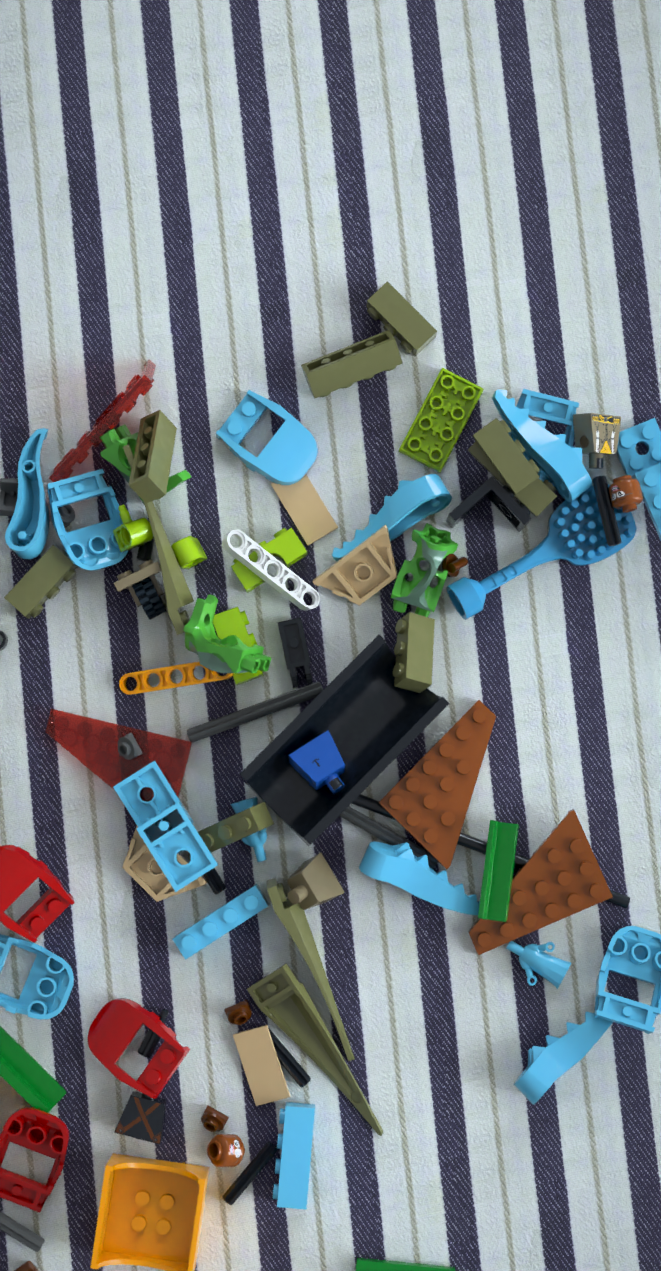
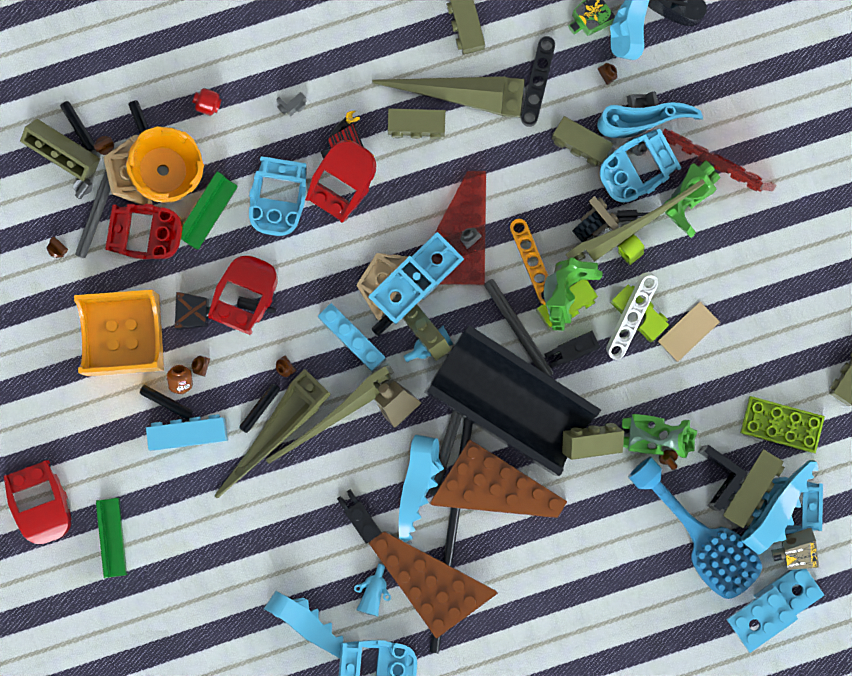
camera: 75 degrees right, 0 degrees up
(132, 533) = (636, 201): lime piece -> none
(153, 457) = (700, 204): olive brick -> none
(261, 1065) = (249, 393): tan piece -> none
(287, 453) = (727, 309): medium azure slope -> none
(320, 763) = (490, 385): blue torso -> none
(352, 364) = (810, 344): olive brick -> none
(362, 569) = (648, 387): tan wing -> none
(403, 509) = (703, 409): medium azure animal -> none
(446, 958) = (360, 518): none -> black hinge
(498, 871) = (437, 543): green panel -> none
(506, 455) = (766, 480): olive brick -> none
(606, 511) = (740, 570): black axle -> none
(625, 493) = (757, 582): dark orange head -> none

